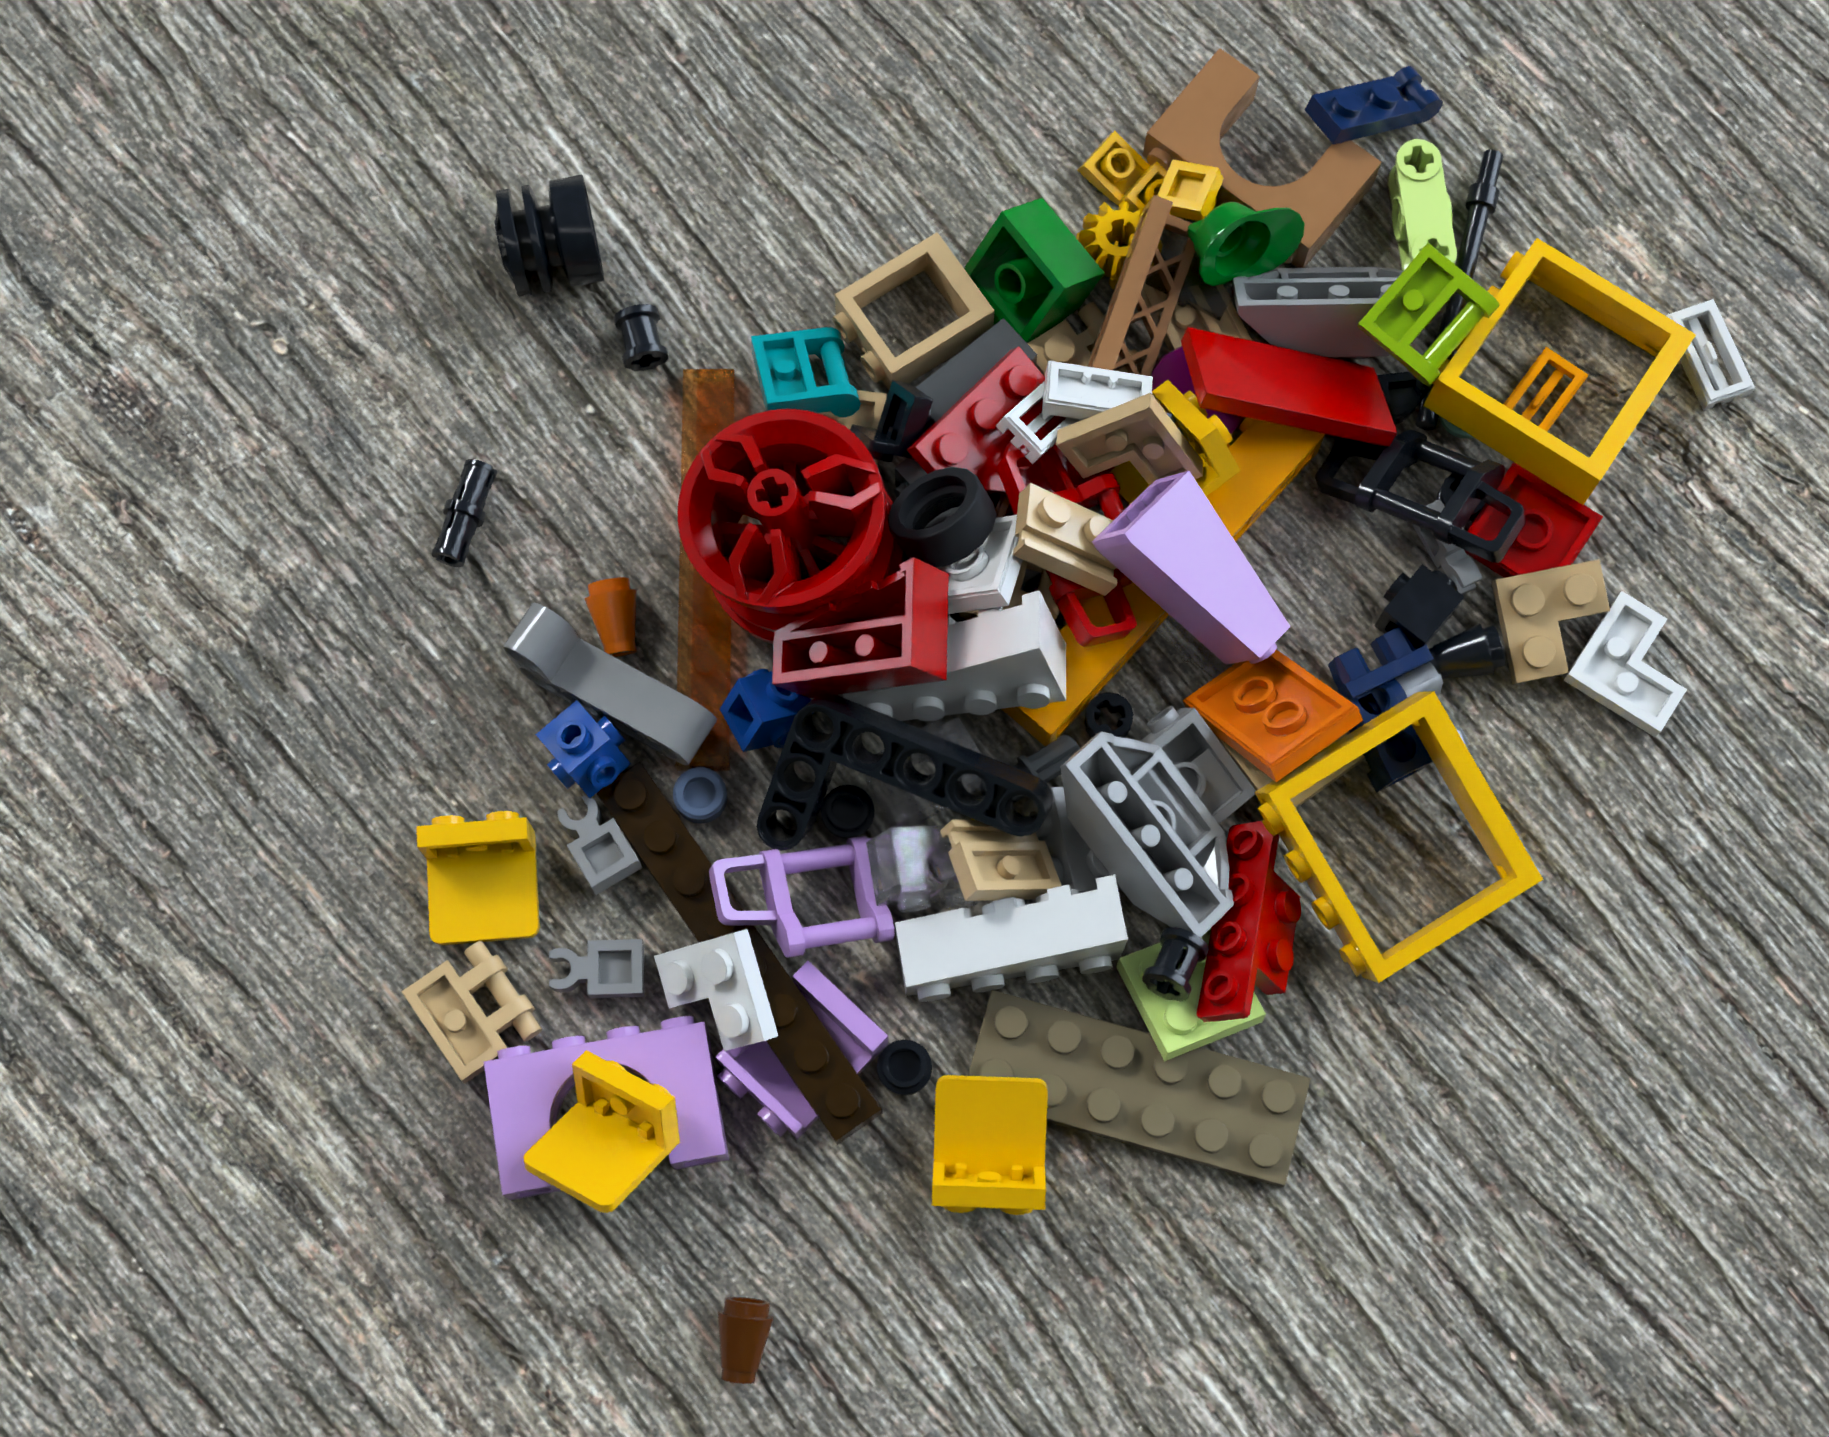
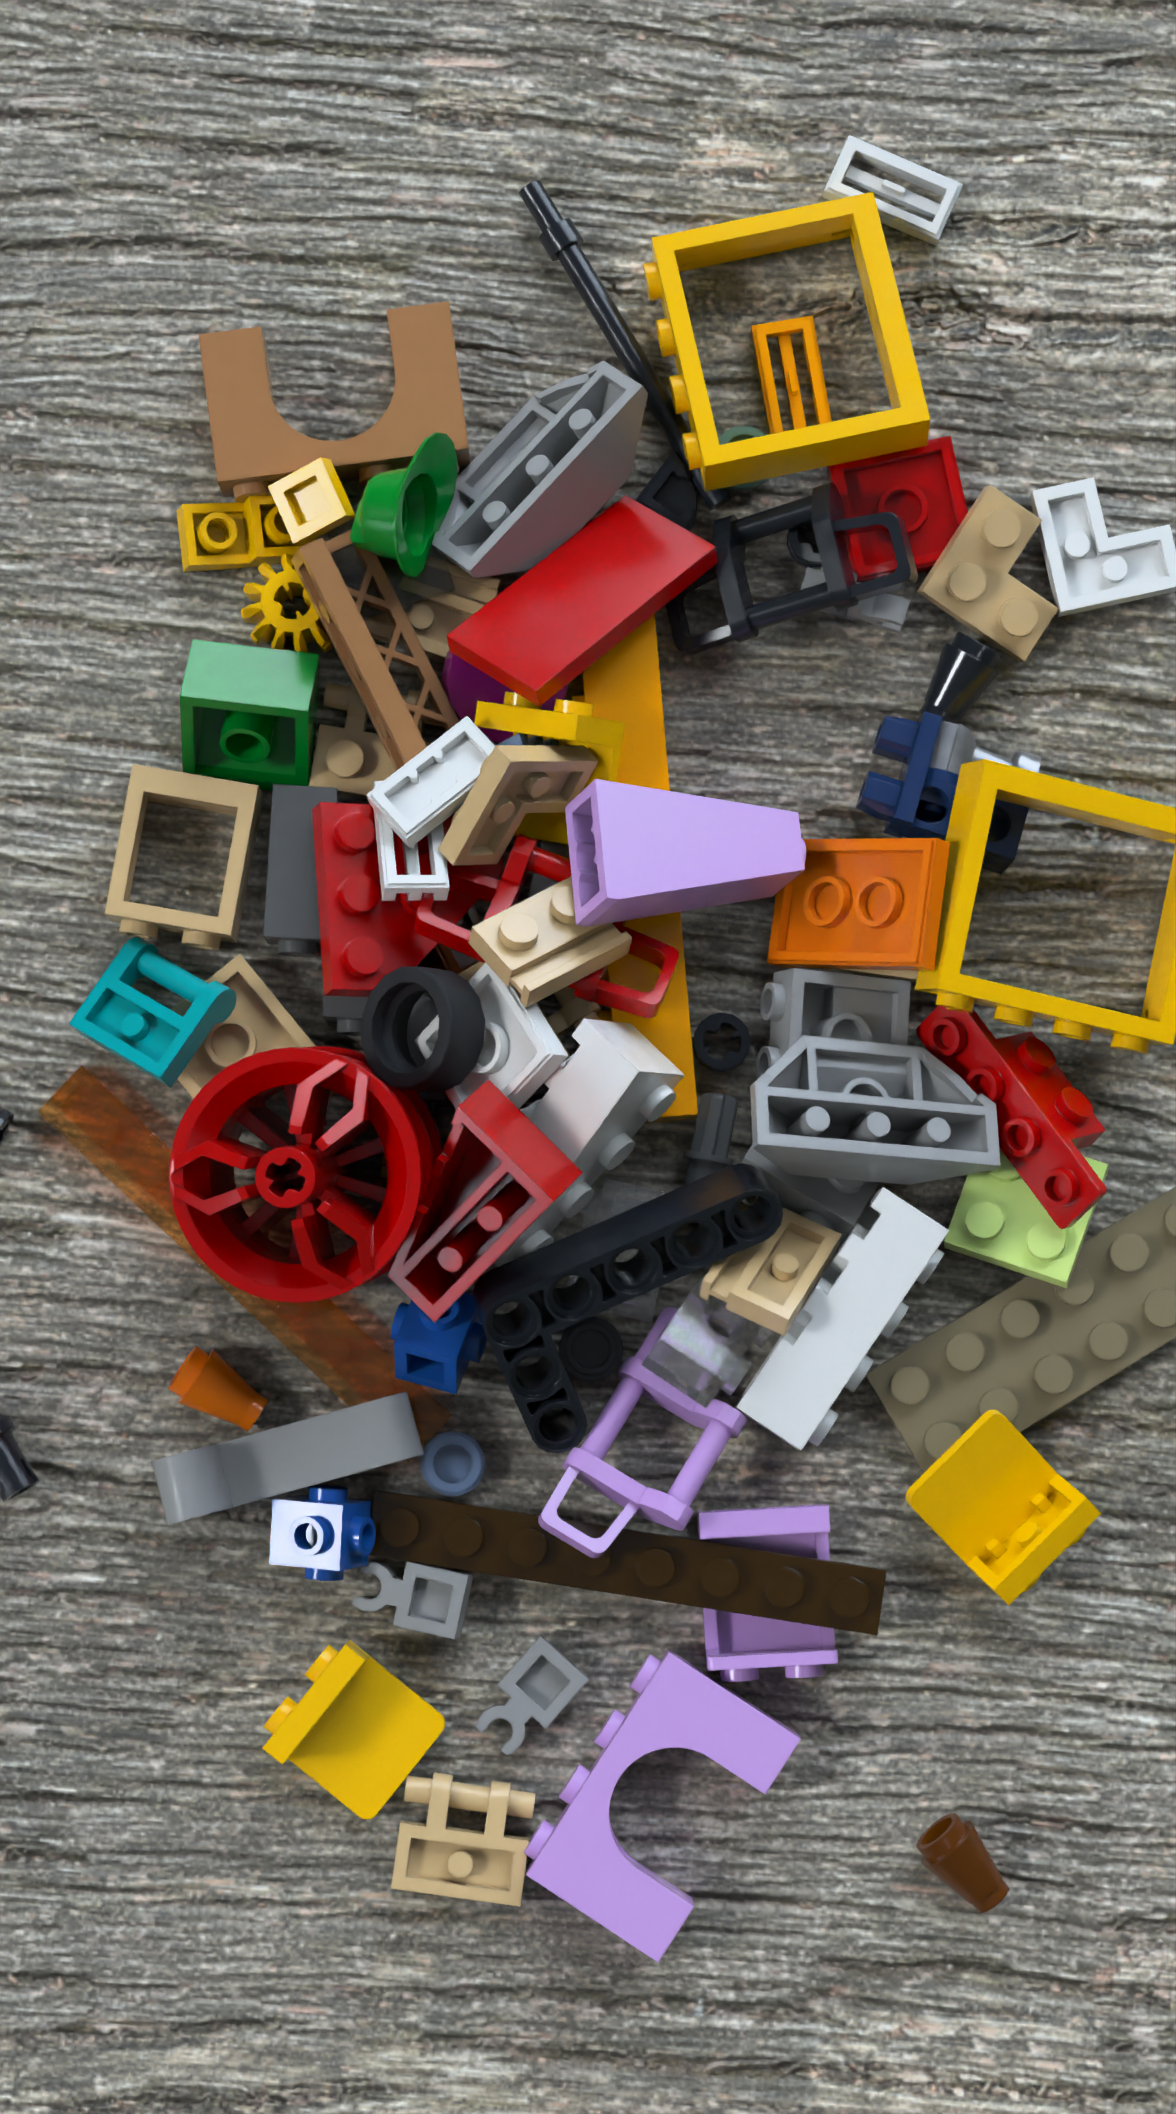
camera: 45 degrees left, 10 degrees up
(608, 1137) = (696, 1832): yellow bracket -> none
(730, 978) = (646, 1595): white plate -> none
(901, 423) = (289, 976): black bracket -> none
(904, 1067) = (861, 1511): black plate -> none
(1175, 964) = (1001, 1204): black bush -> none
(1373, 106) = (386, 252): dark blue plate -> none
(1413, 304) = (620, 419): lime plate -> none
(1419, 605) = (881, 678): black brick -> none
(1420, 202) = (526, 309): yellowish green piece -> none

